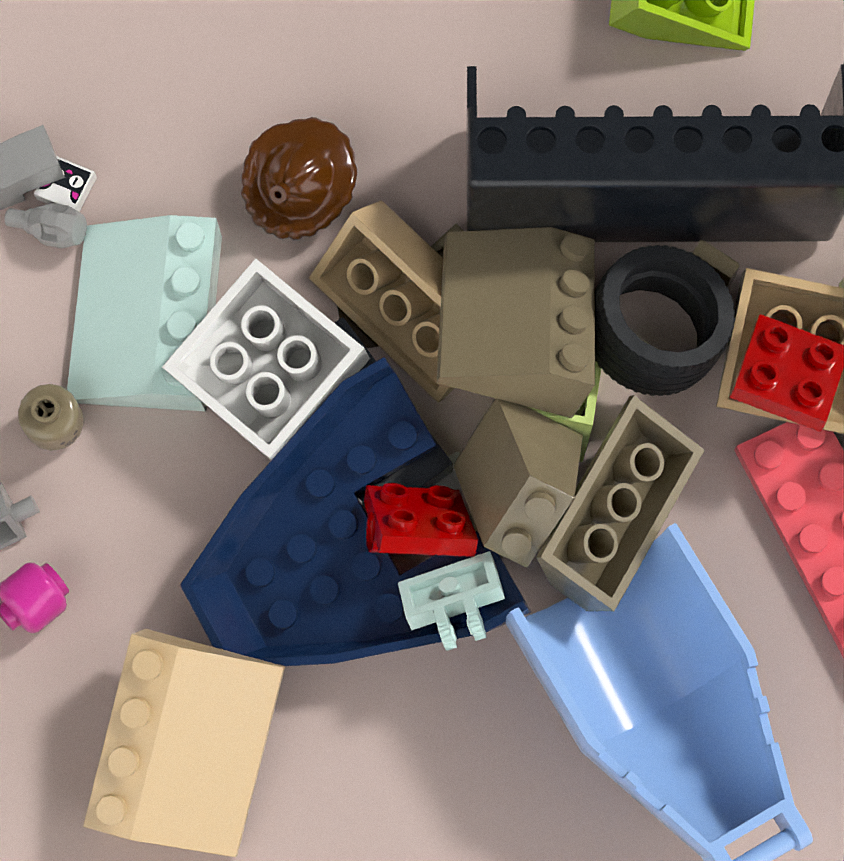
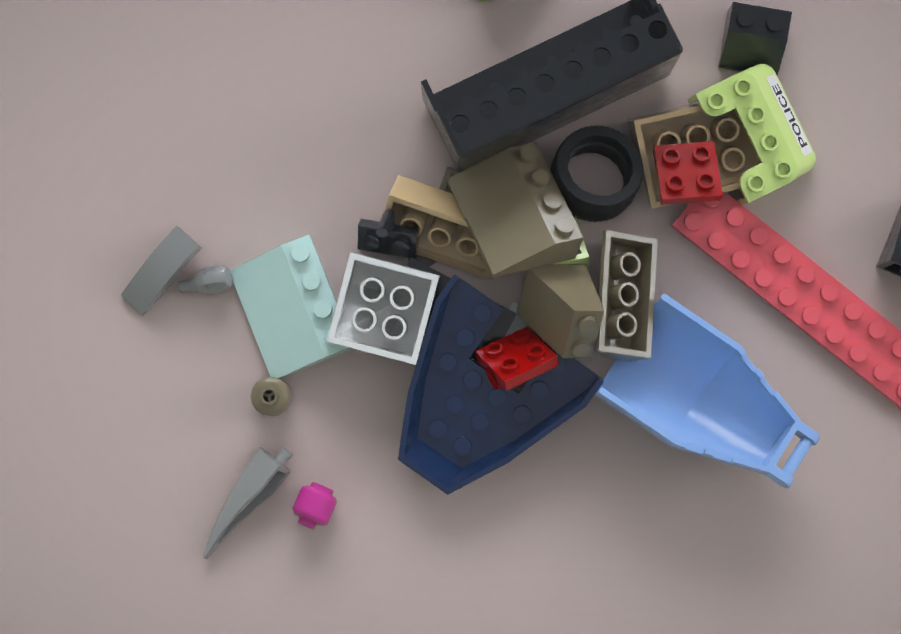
camera: 25 degrees left, 10 degrees up
(69, 190) = (209, 254): tile -> none
(183, 744) = (445, 547): tan slope -> none
(298, 177) = (343, 183): reddish brown piece -> none
(322, 277) = (388, 237): none -> black plate
(451, 592) = (555, 392): light aqua hinge -> none
(718, 260) = (611, 121): dark tan tile -> none

